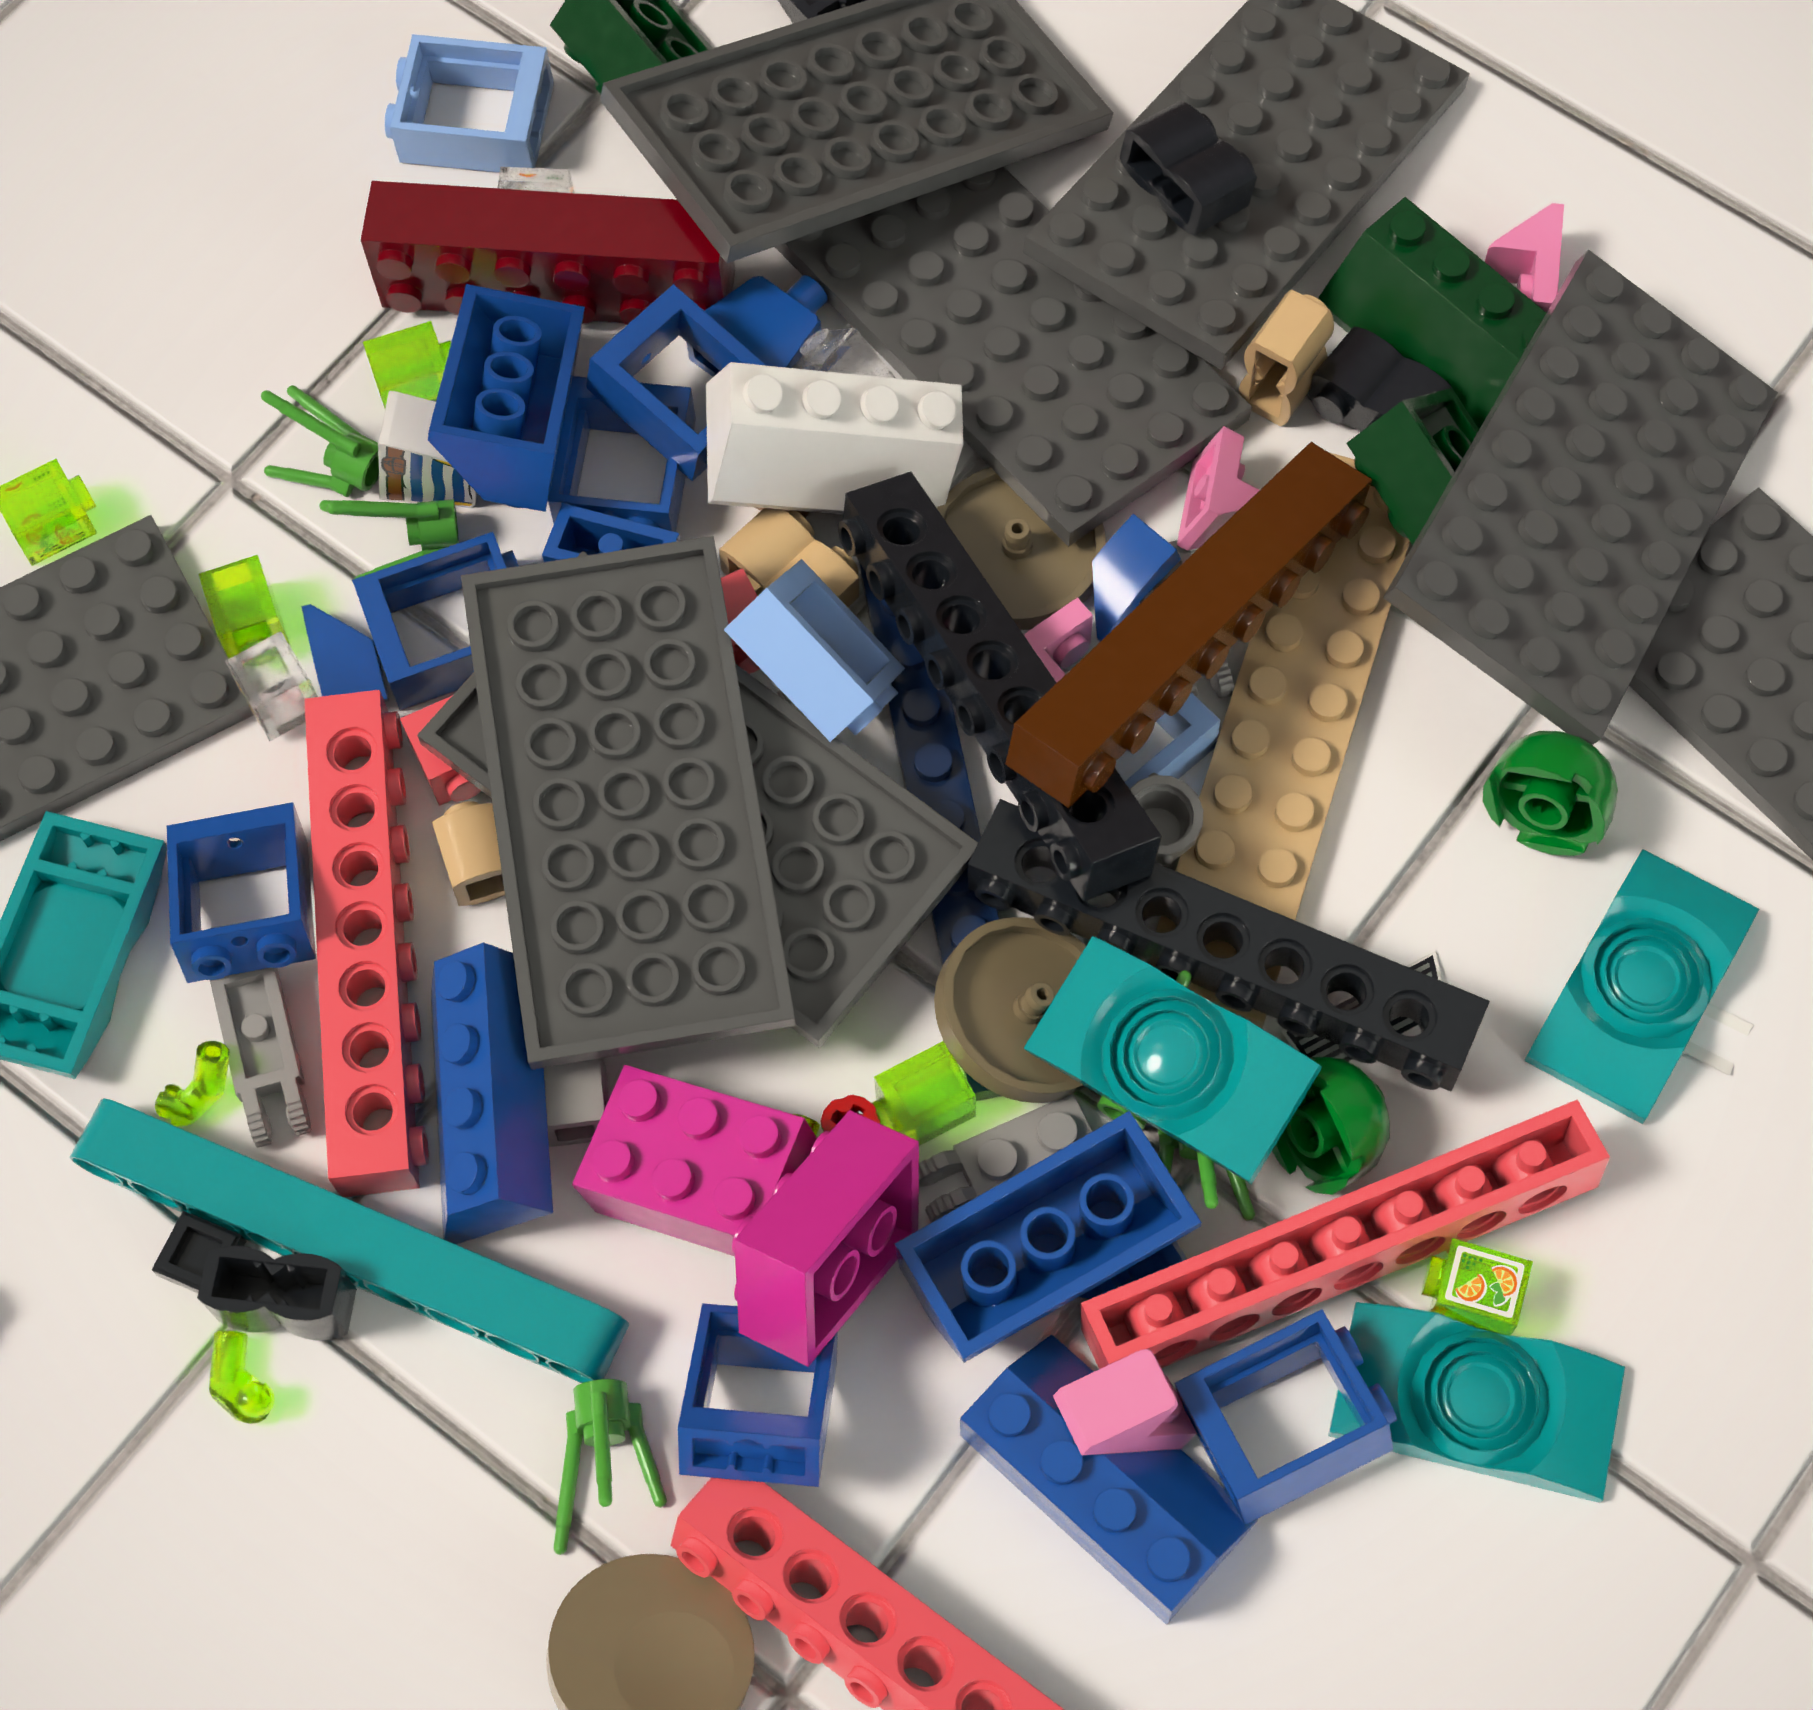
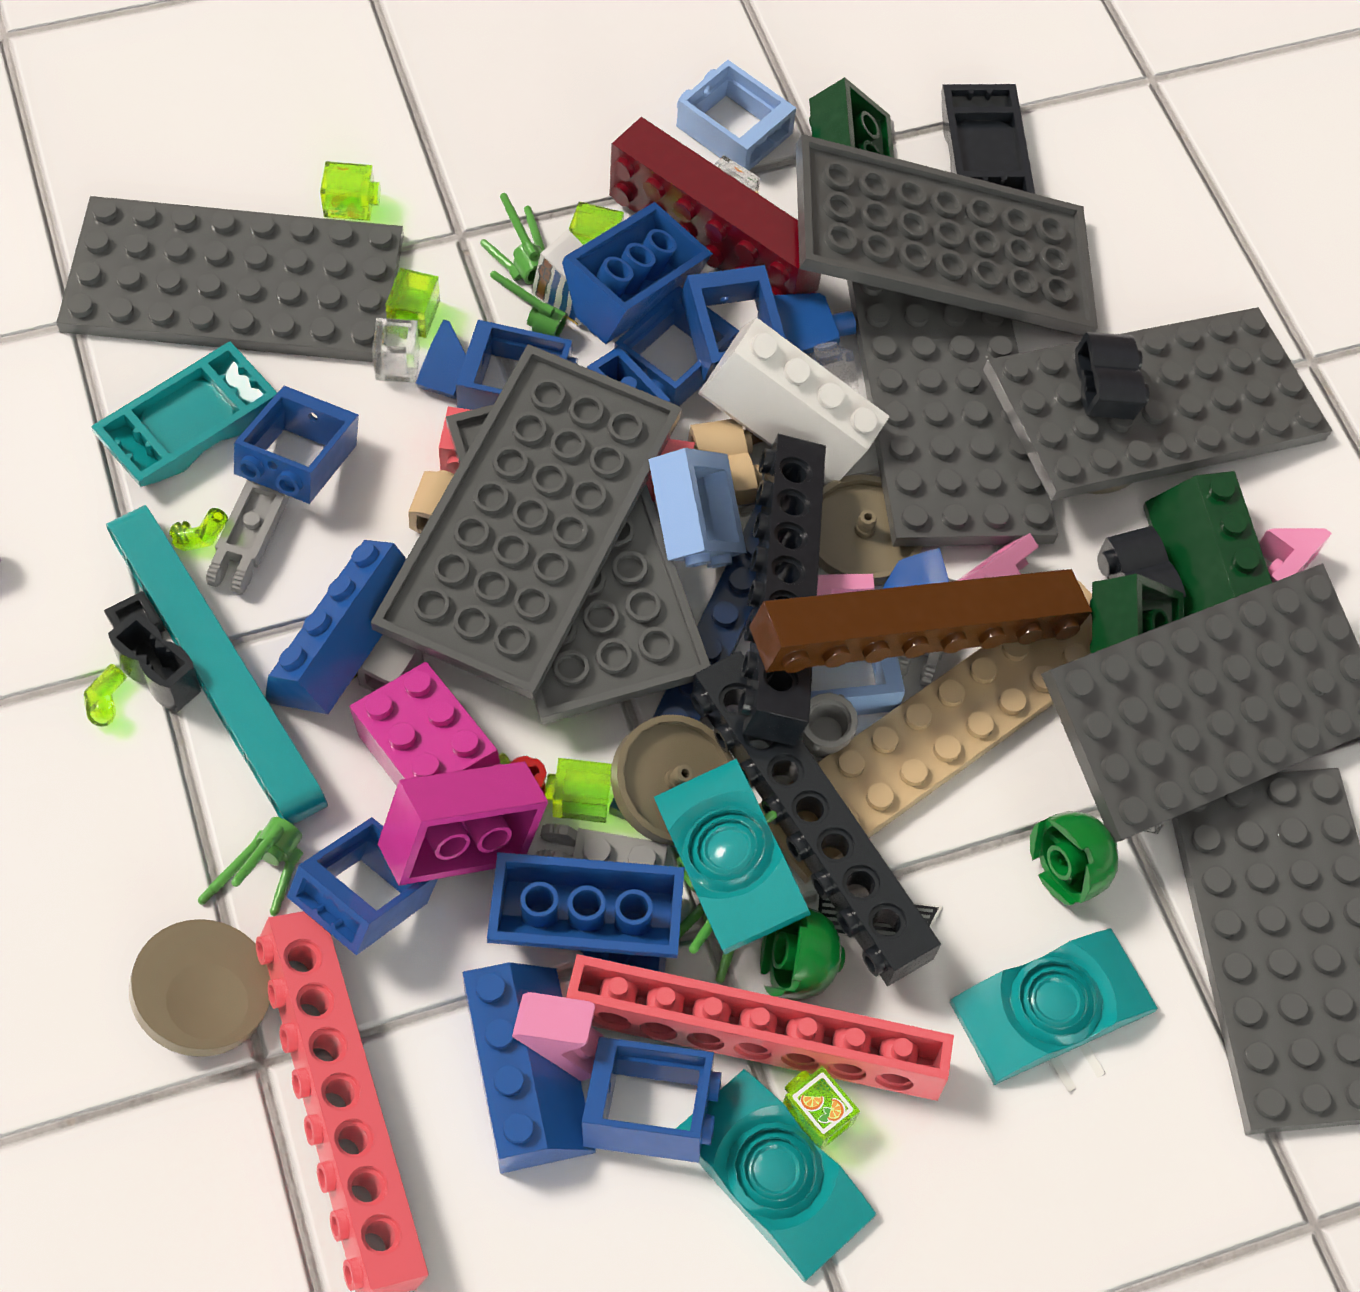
camera: 25 degrees right, 5 degrees down
(336, 733) = (272, 632): coral brick -> none
(1286, 356) = (1094, 515): tan brick -> none

